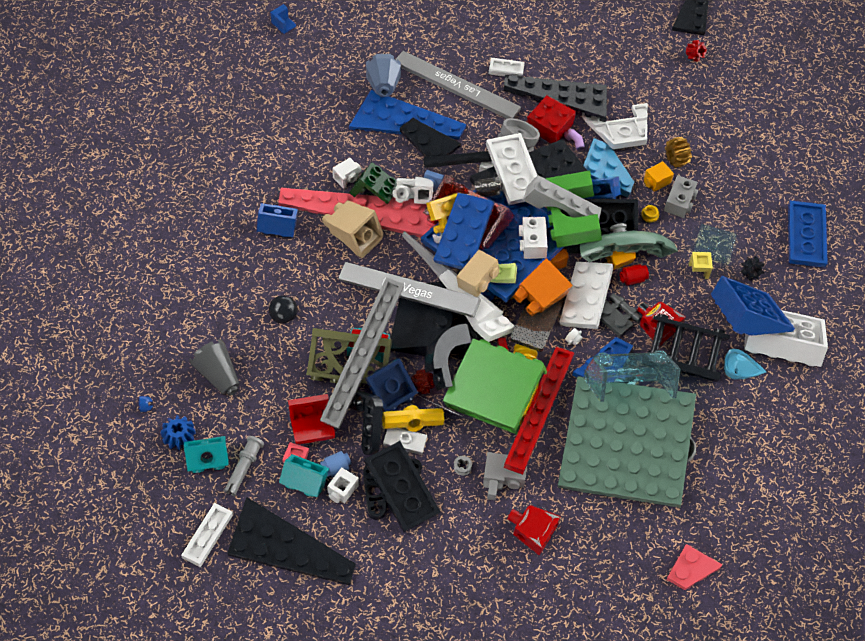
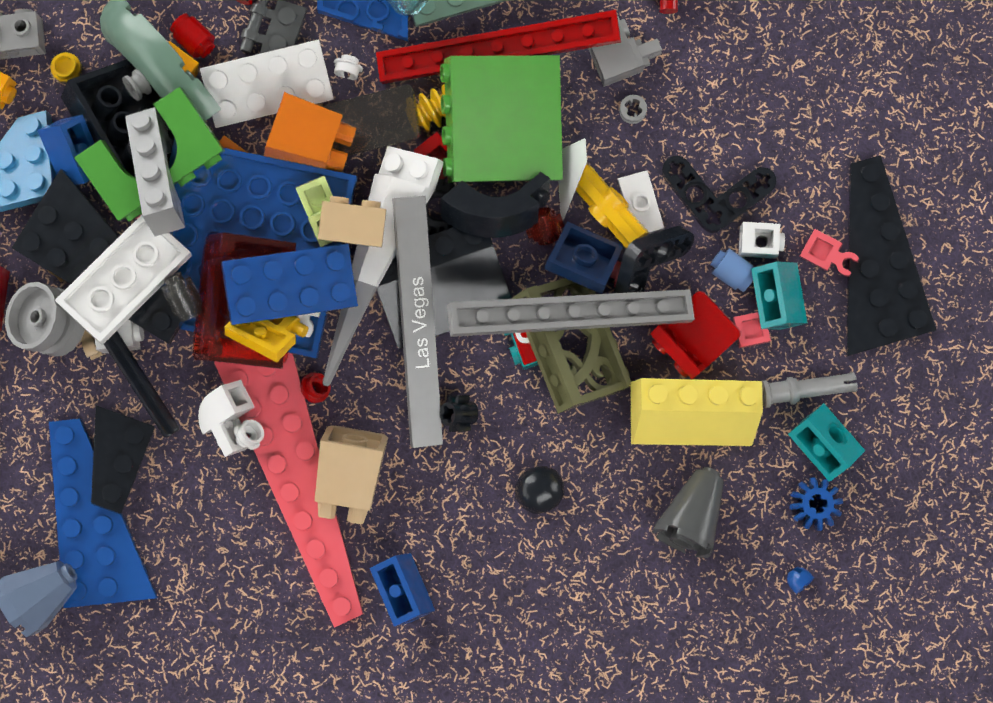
camera: 110 degrees left, 25 degrees up
(207, 535) = (928, 370): white plate -> none
(271, 396) = (695, 412): none -> light yellow slope
(311, 517) = (824, 252): none -> coral plate
(346, 172) = (250, 544): white brick -> none
(348, 290) = (459, 413): none -> black gear
(376, 181) = (250, 487): dark green bracket -> none
(401, 486) = (717, 163): black plate -> none
(402, 241) = (308, 391): none -> red plate
(435, 178) = (189, 406): medium blue plate -> none
(534, 237) = (233, 186): white brick -> none

